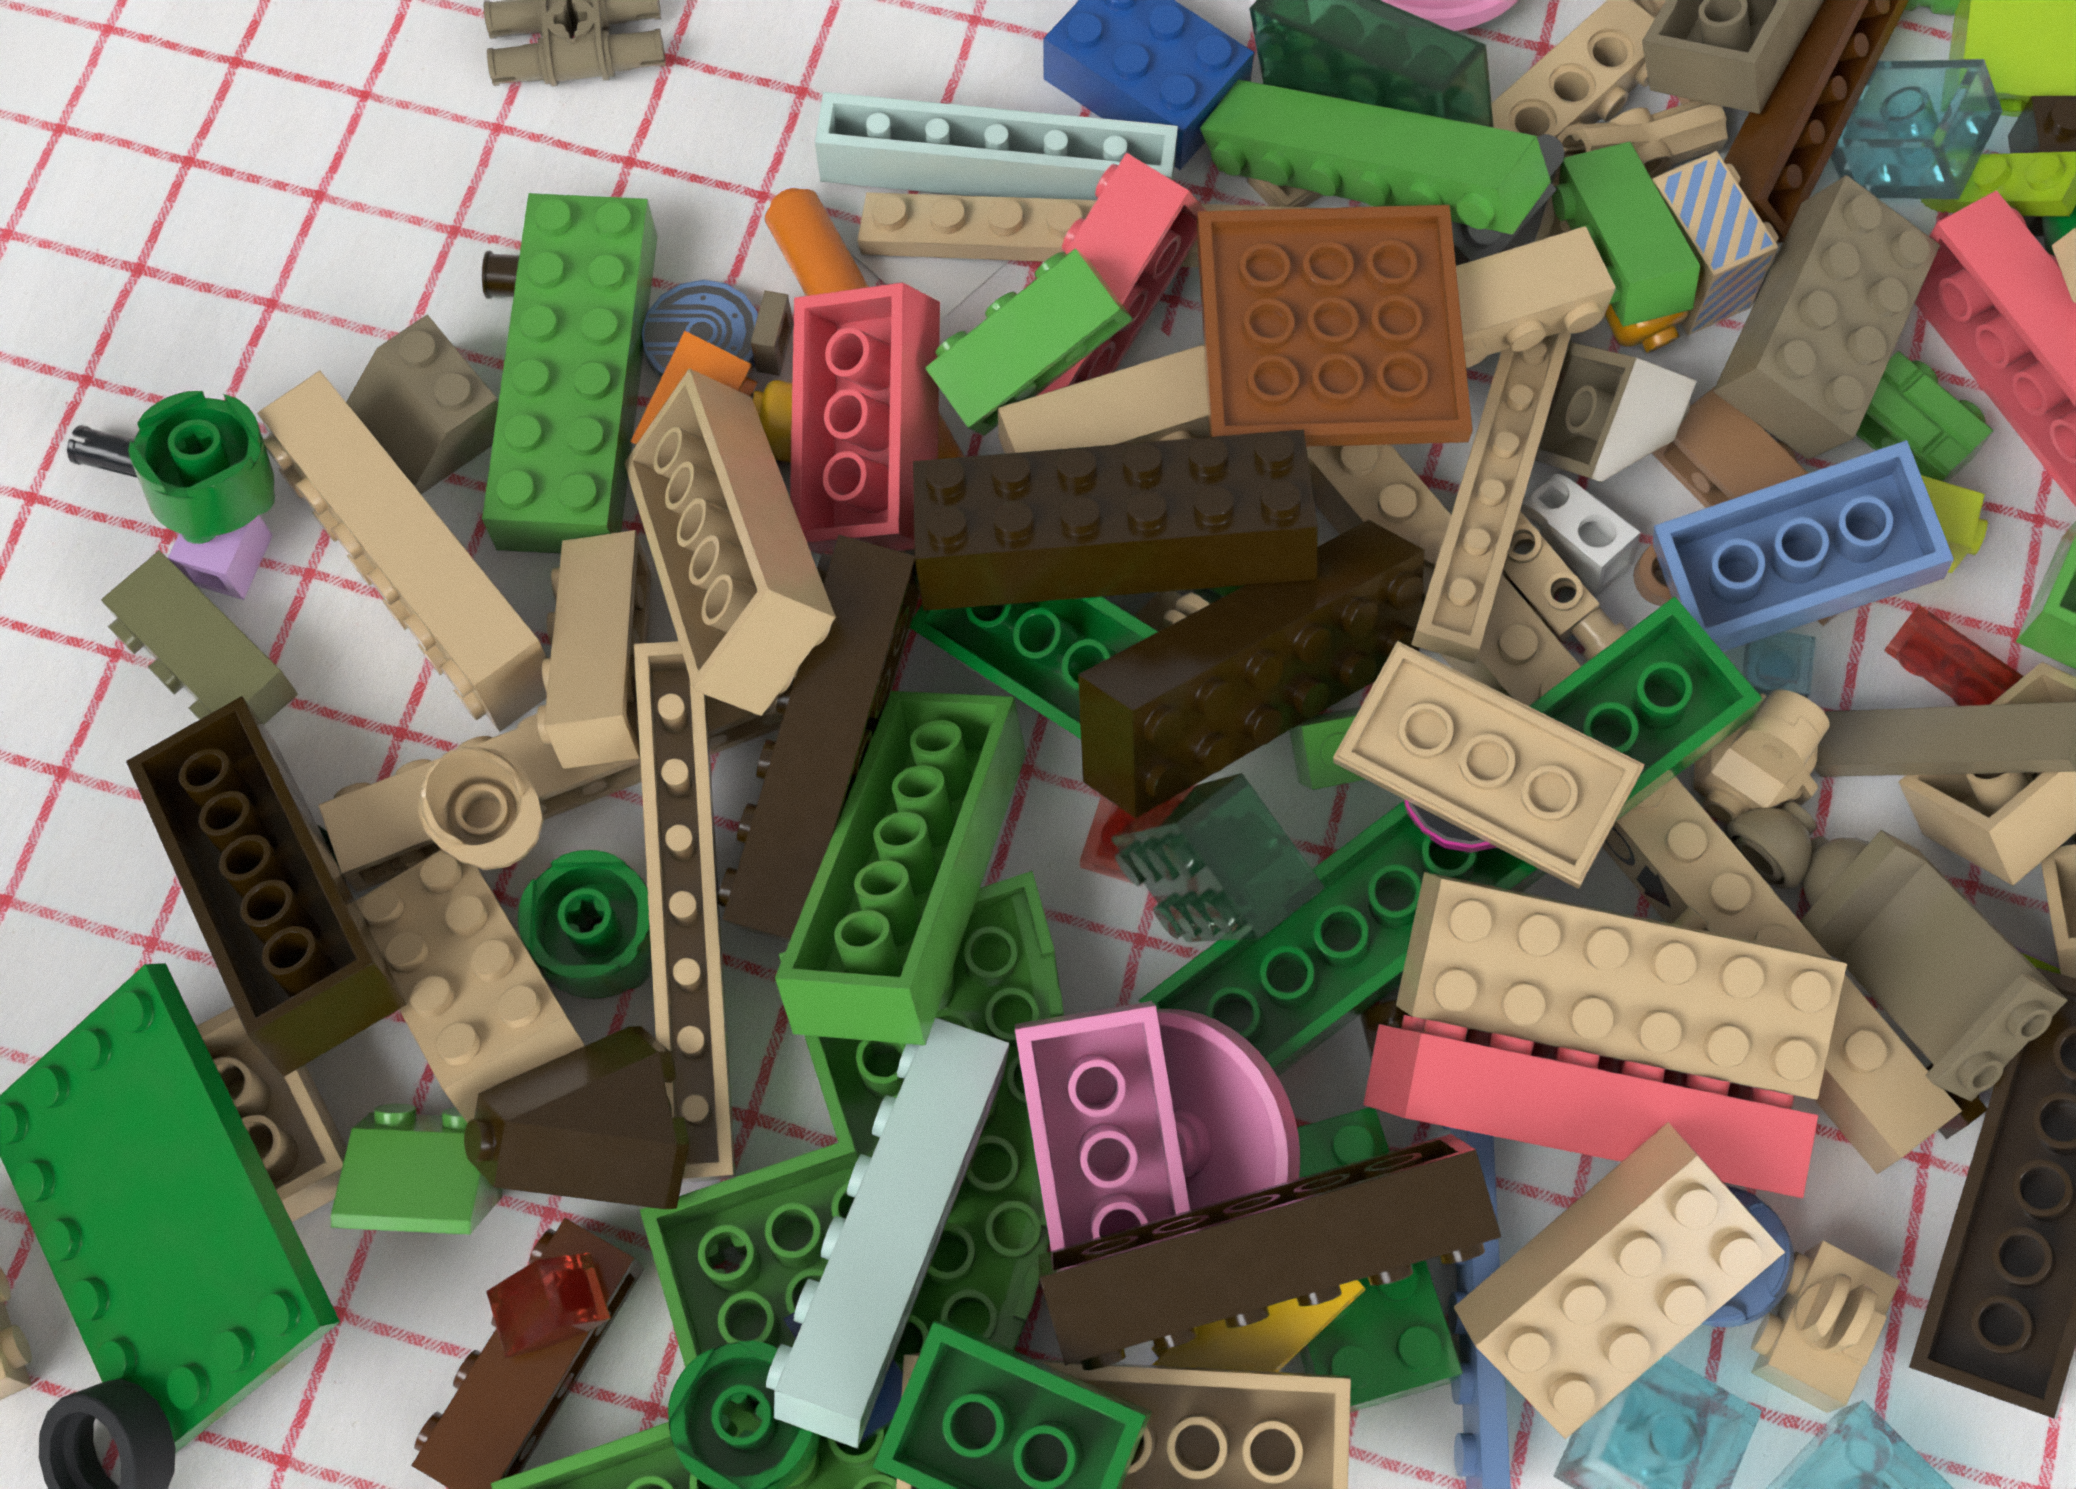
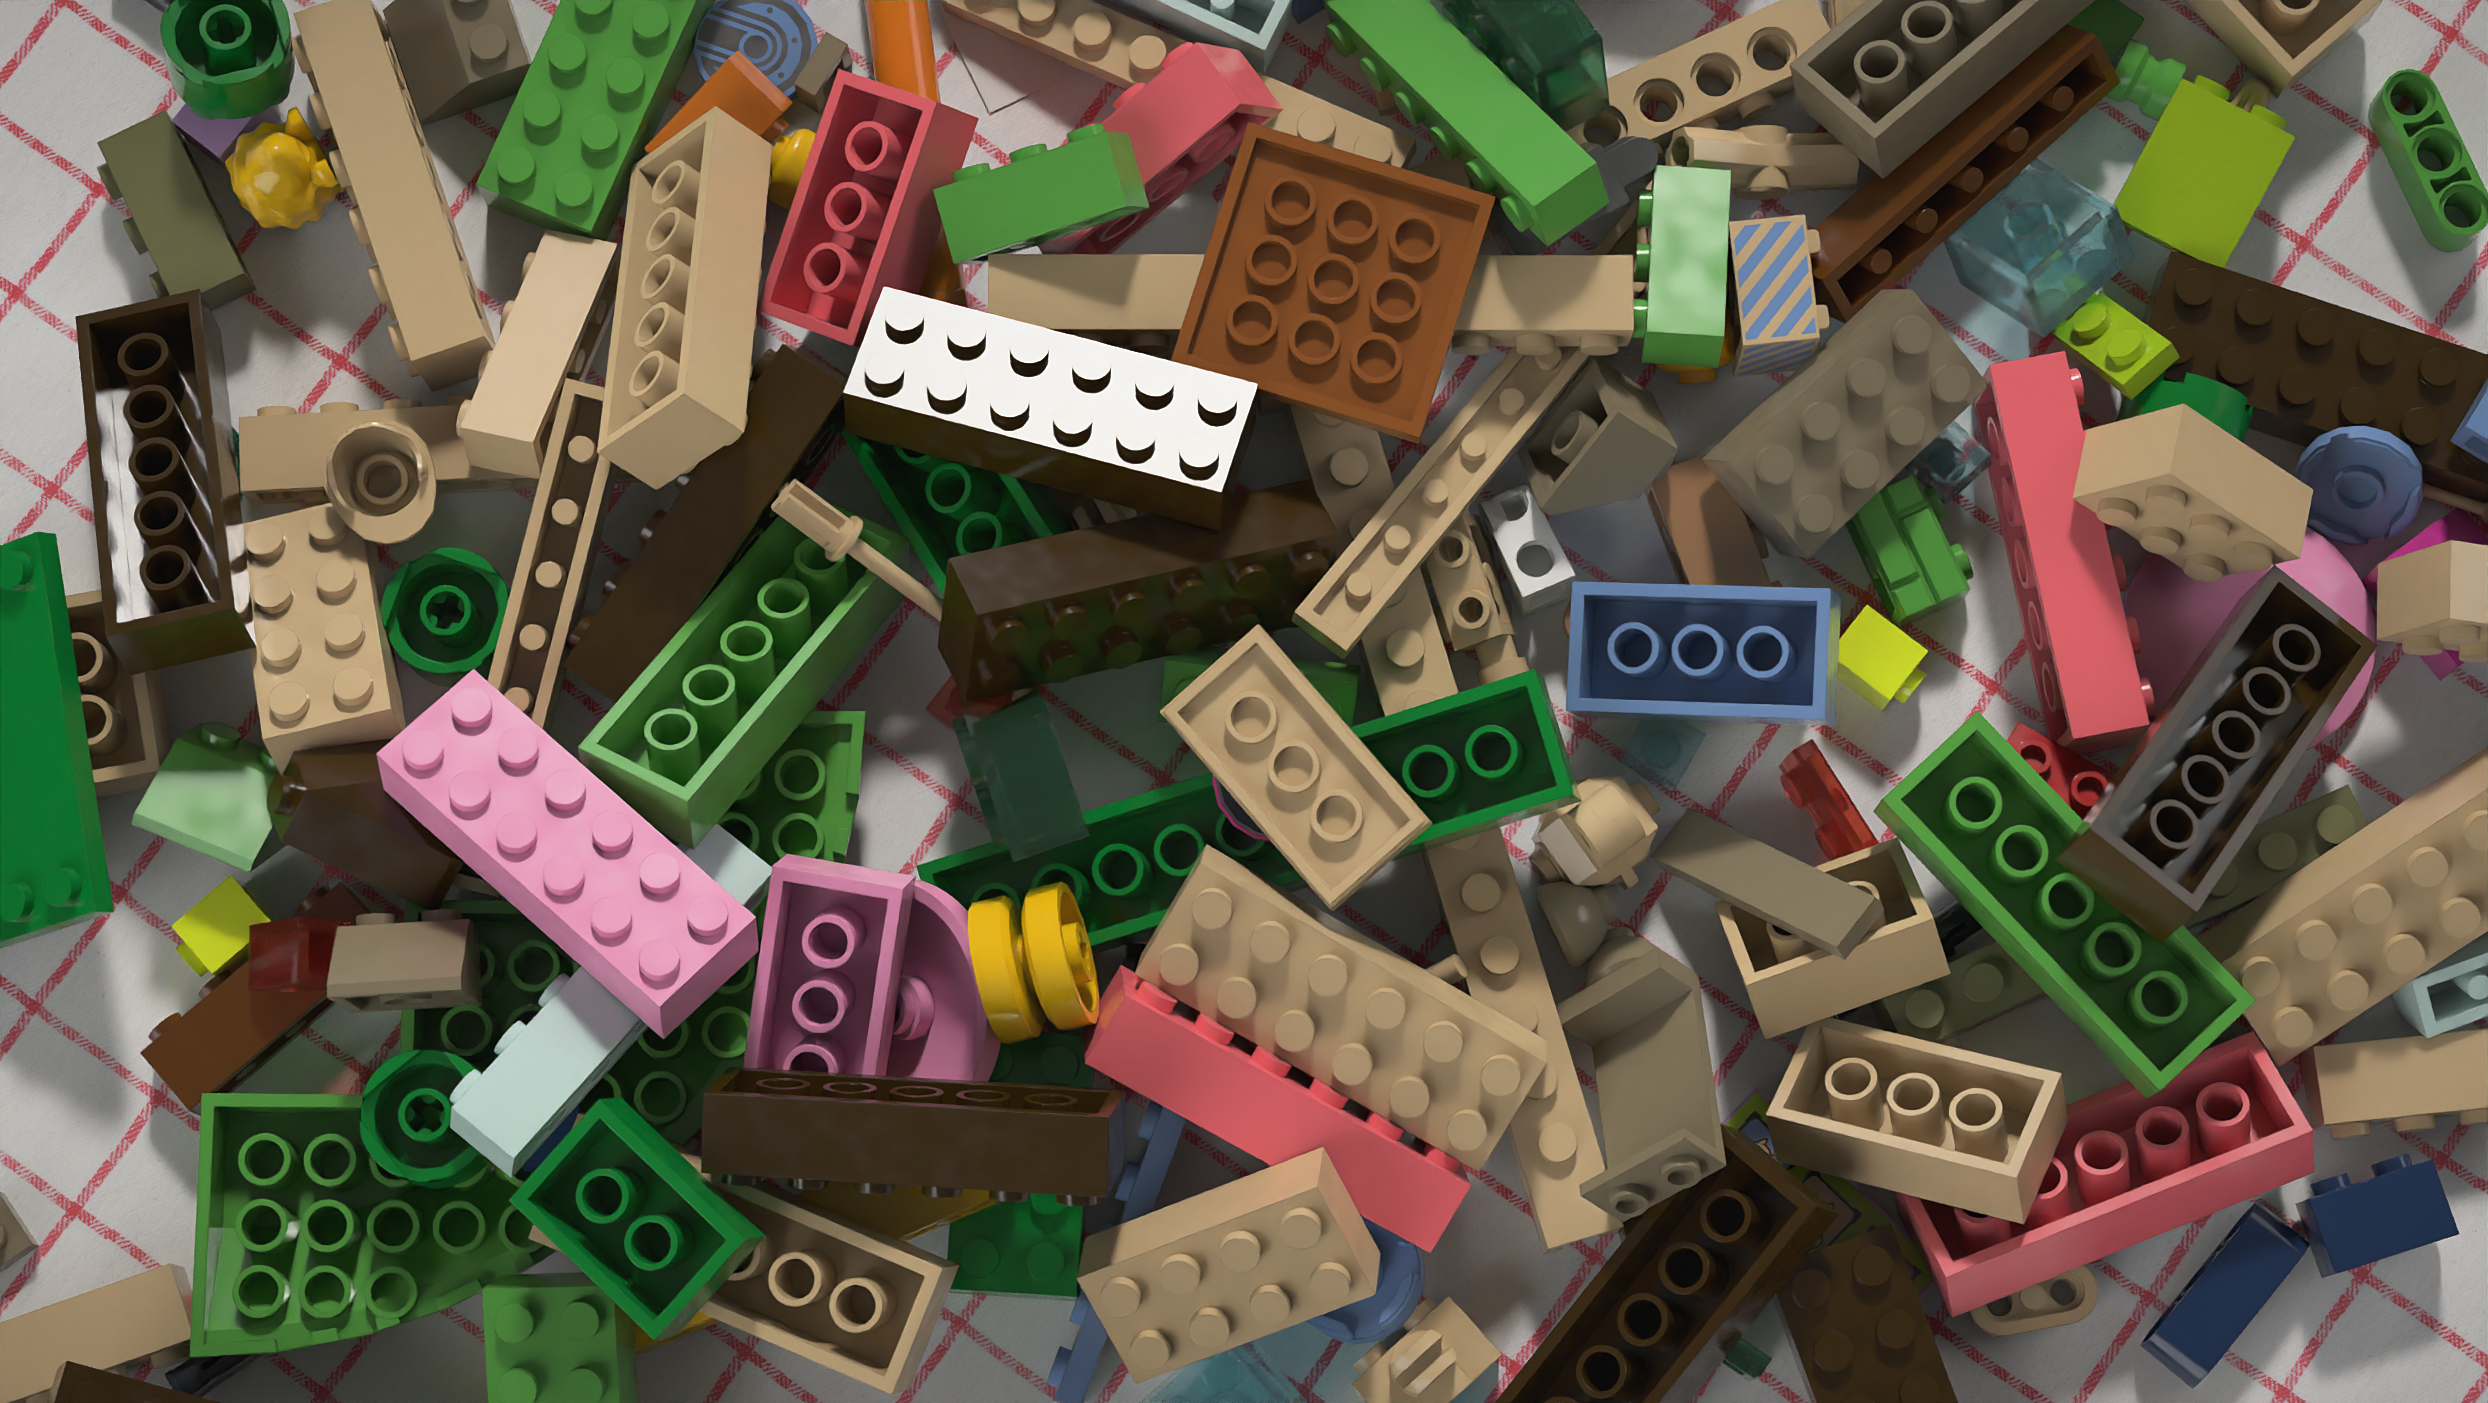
camera: 20 degrees right, 10 degrees up
(292, 571) = (283, 173): none -> yellow animal
(454, 1310) = (218, 928): none -> neon yellow brick
(665, 1269) = (406, 964): none -> dark tan slope
(803, 1090) = (568, 853): none -> bright pink brick
(955, 704) = (840, 536): none -> tan piece
(1308, 1040) = (1033, 963): none -> yellow wheel
(1924, 334) = (1950, 462): none -> clear light blue plate

